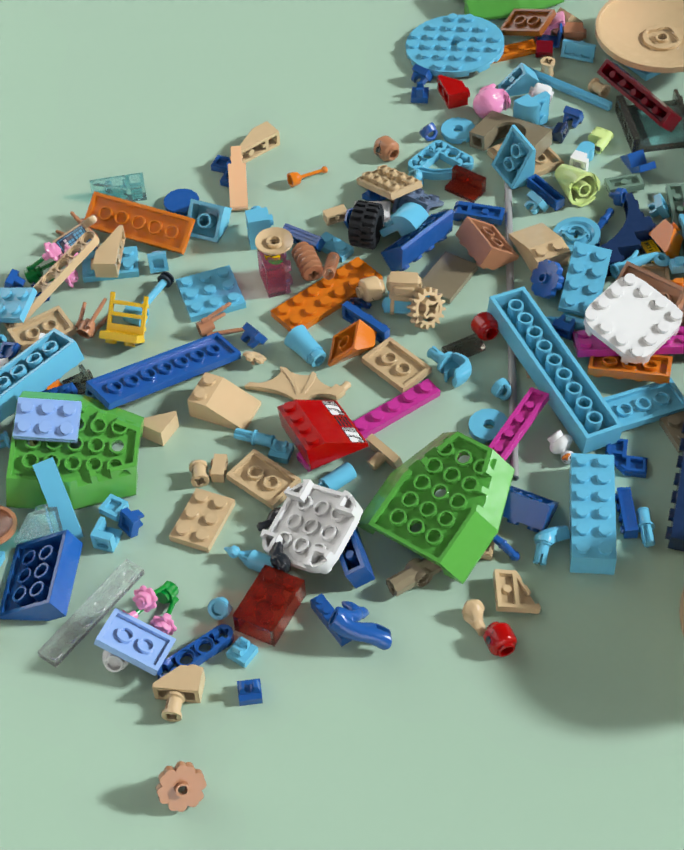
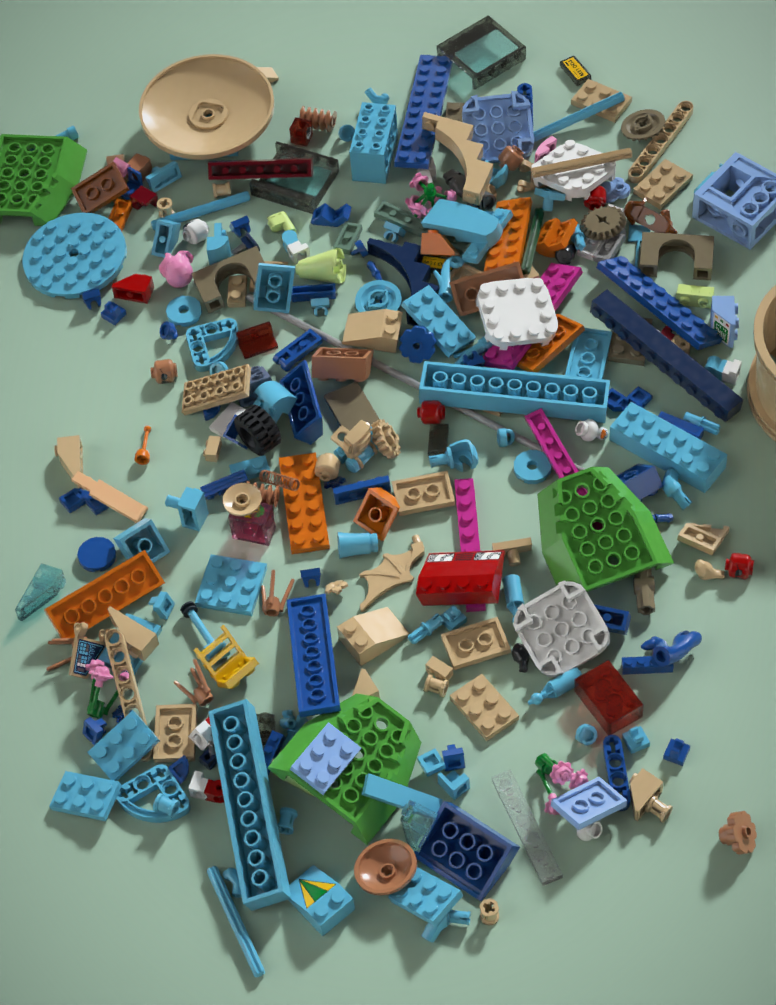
camera: 55 degrees left, 5 degrees up
(280, 559) = (576, 666): black animal -> none

